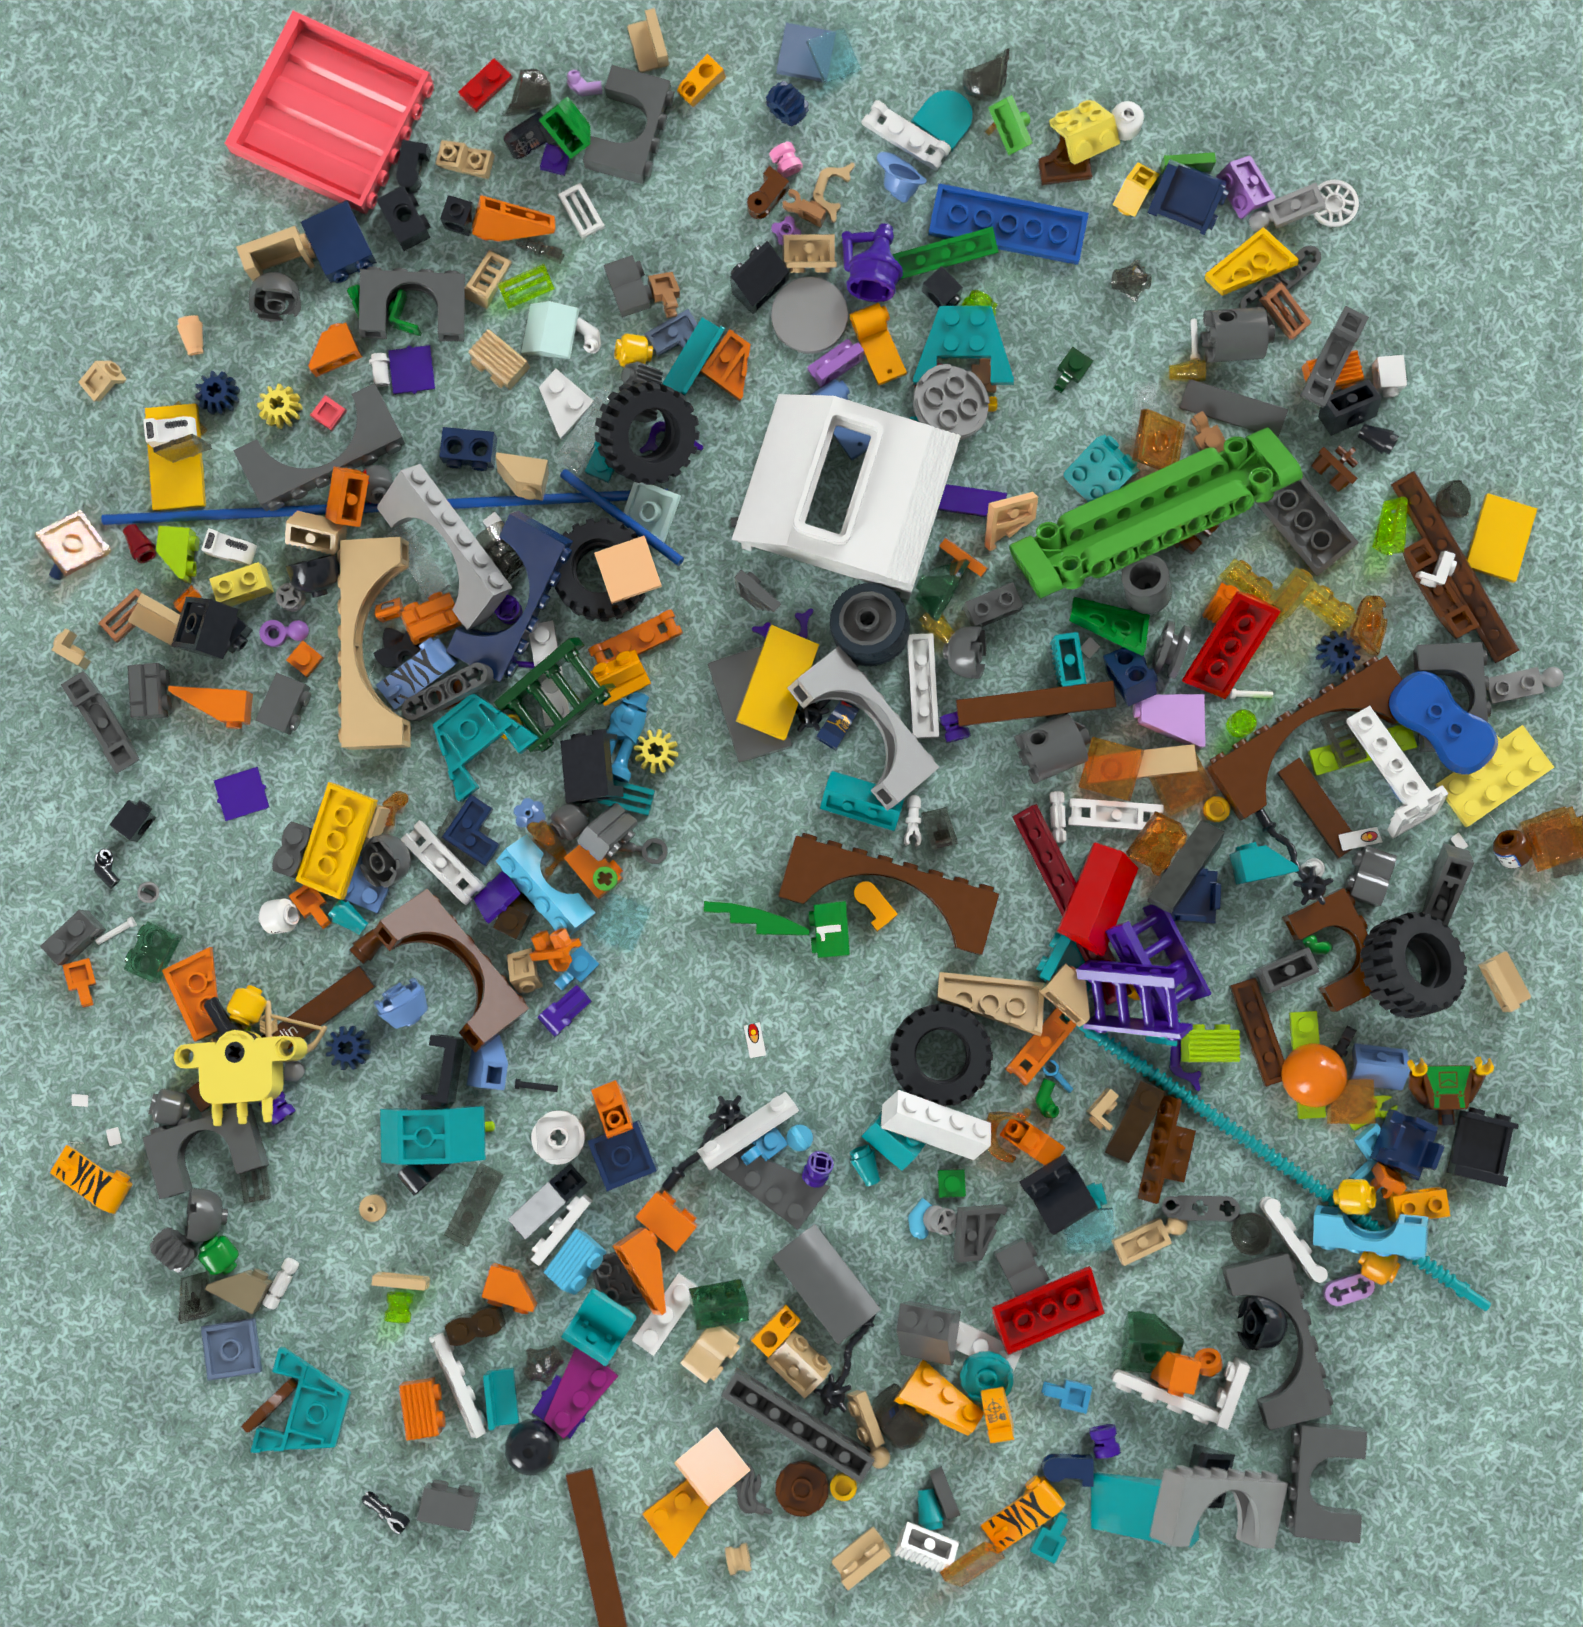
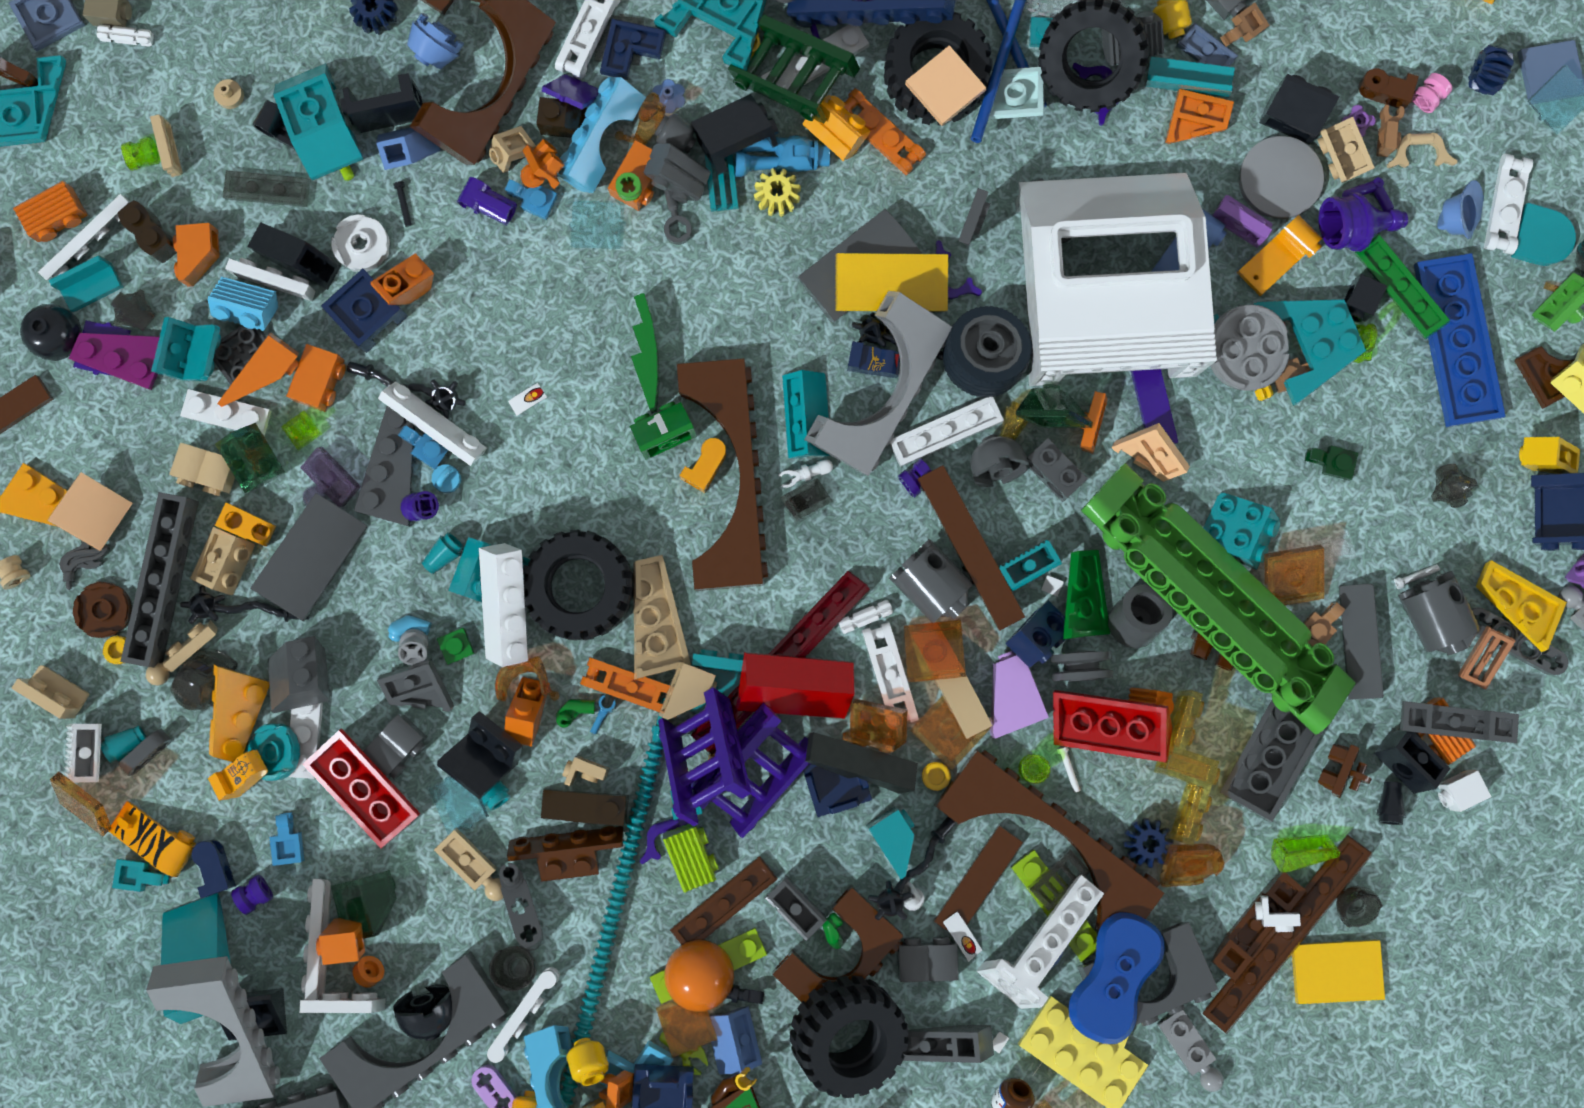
camera: 65 degrees right, 0 degrees up
(707, 1251) = (301, 430): none -> clear neon green tile
(761, 1241) = (329, 479): none -> clear purple plate
(1188, 370) = (1384, 583): clear yellow cone -> none

